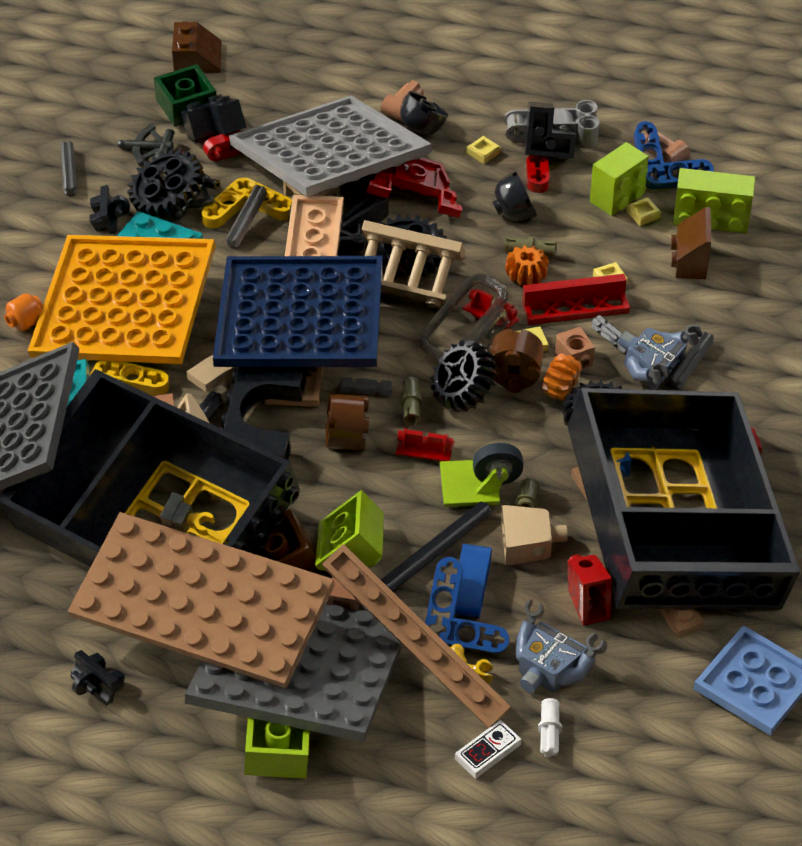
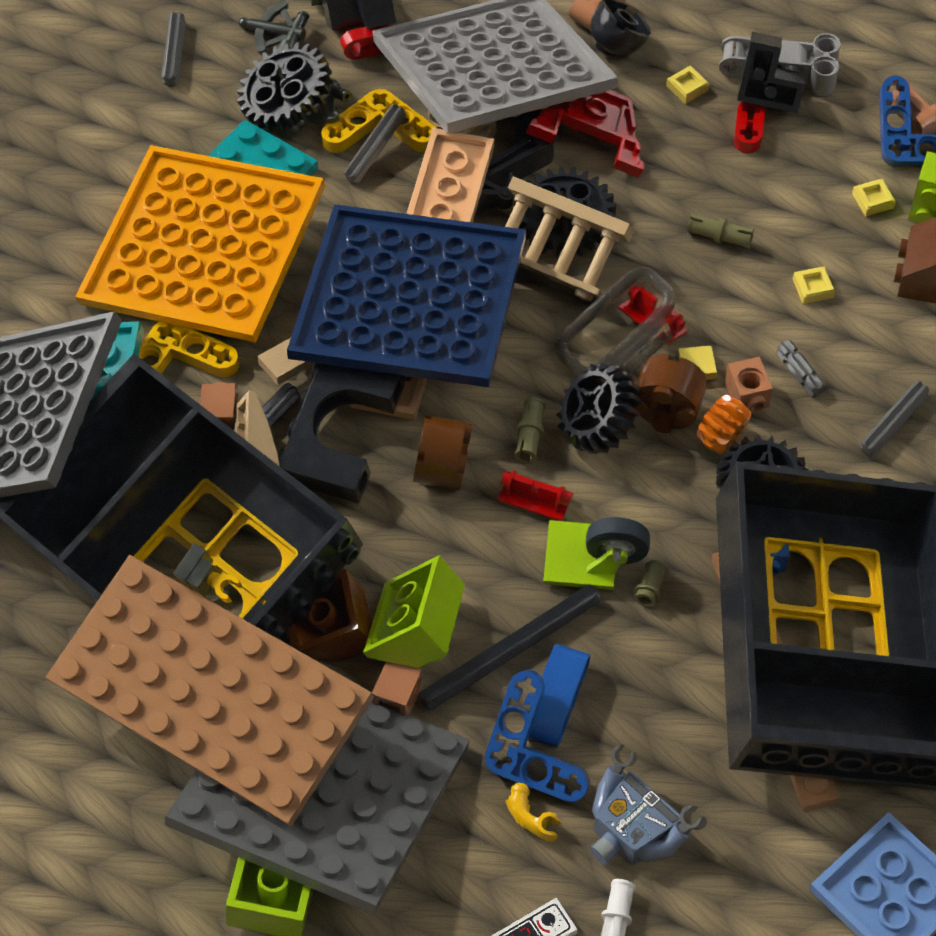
camera: 10 degrees right, 10 degrees up
(23, 312) = (80, 242): orange head -> none
(91, 677) = (65, 763): black hips -> none
(107, 210) = (210, 113): black hips -> none
(365, 386) = (478, 400): dark grey axle -> none
(416, 637) = (470, 772): medium nougat plate -> none
(513, 199) = (710, 162): black cylinder -> none
(526, 265) = (710, 257): orange gear -> none
(528, 534) = (641, 640): tan torso -> none
(573, 295) = (761, 307): red fence -> none
(585, 576) = (700, 717): red torso -> none
(619, 179) = (849, 151): lime brick -> none
(656, 353) = (850, 406): torso -> none

